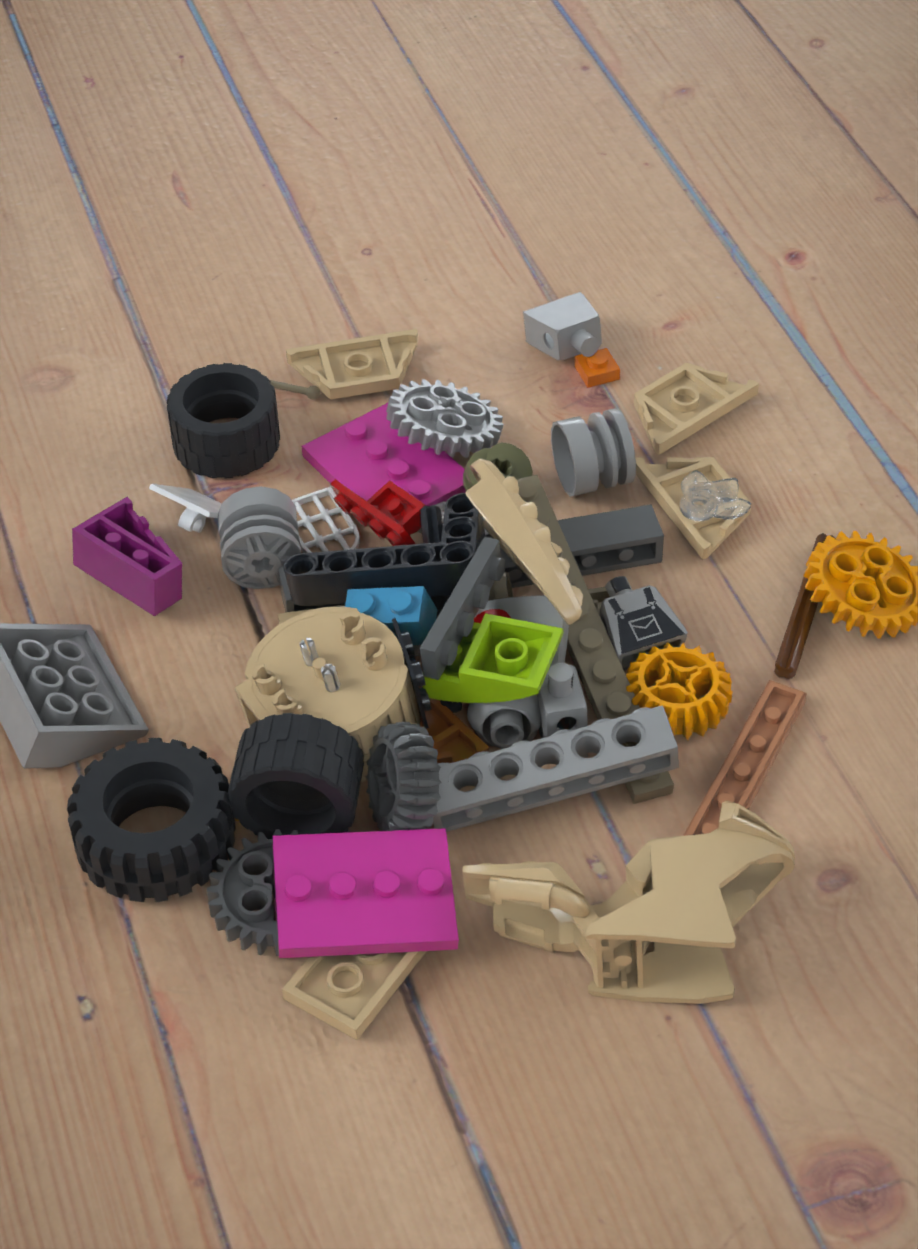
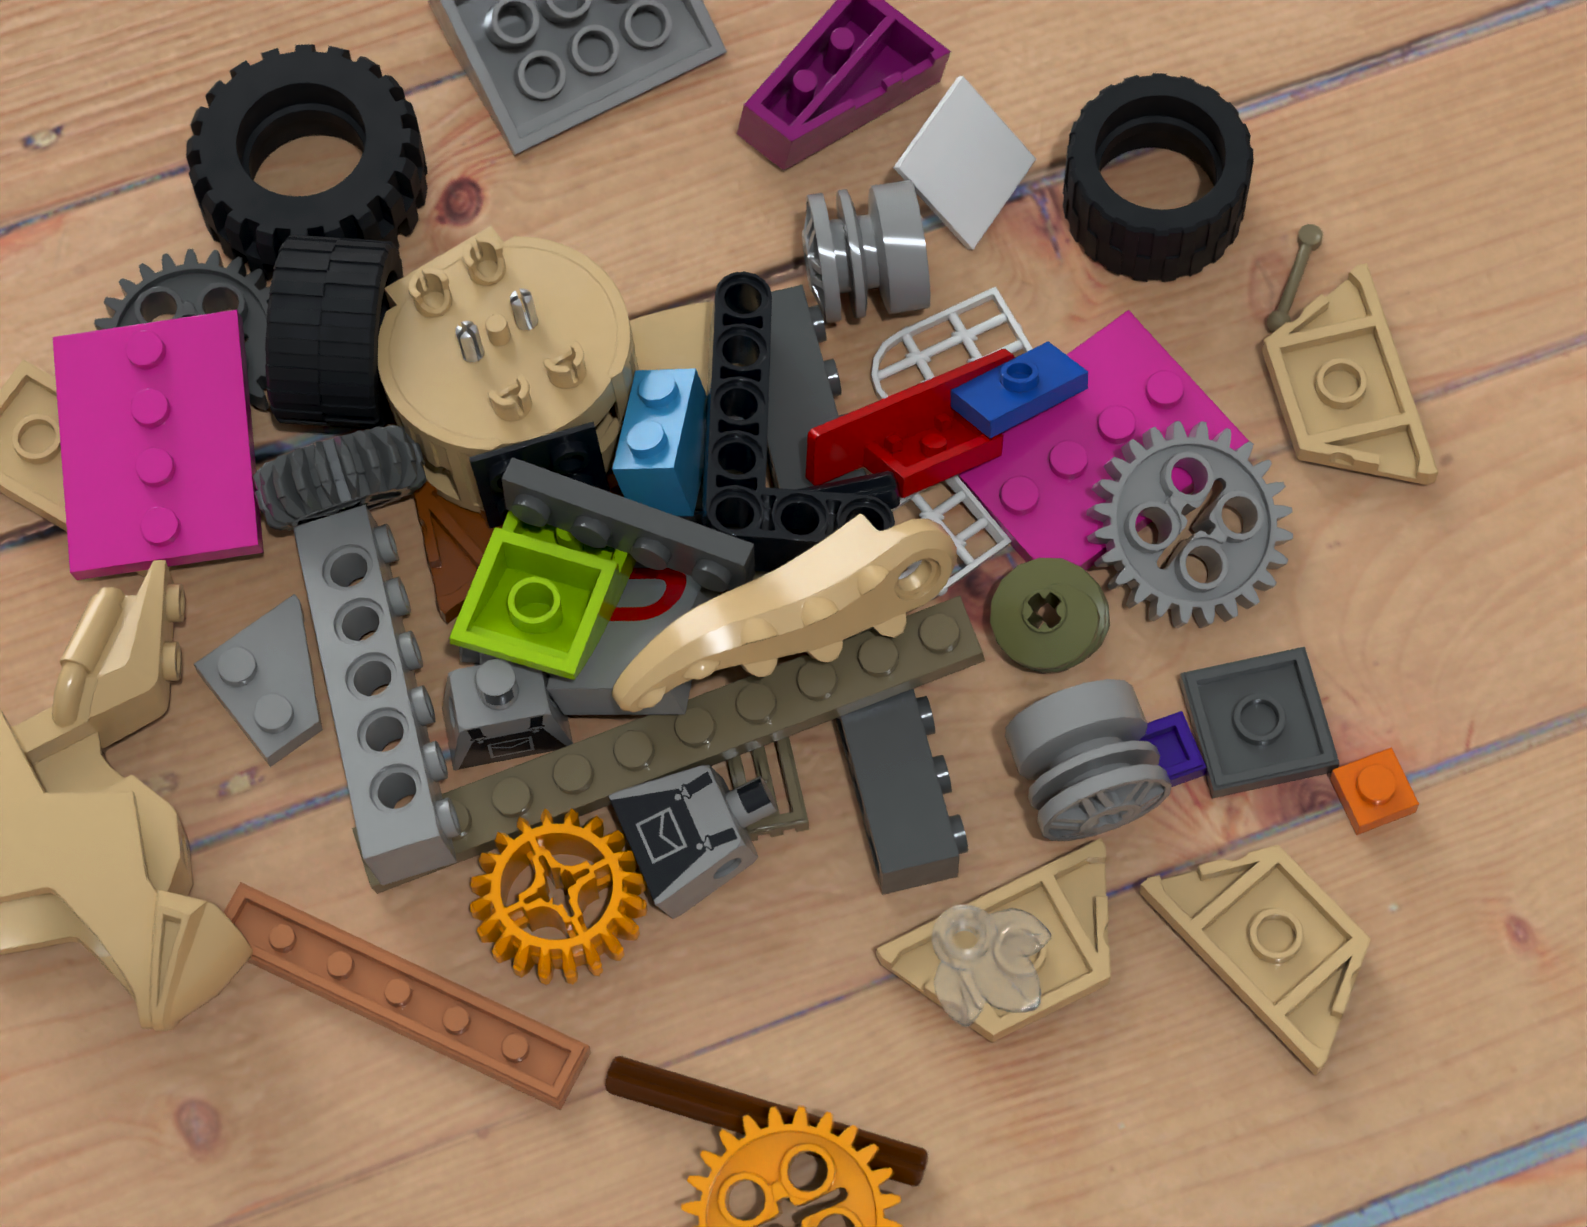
camera: 90 degrees right, 20 degrees up
(359, 475) = (1019, 389): none -> blue plate
(529, 840) = (267, 681): none -> light grey wing
(553, 401) = (1258, 722): none -> dark grey tile
(564, 327) = (1455, 729): light grey torso -> none

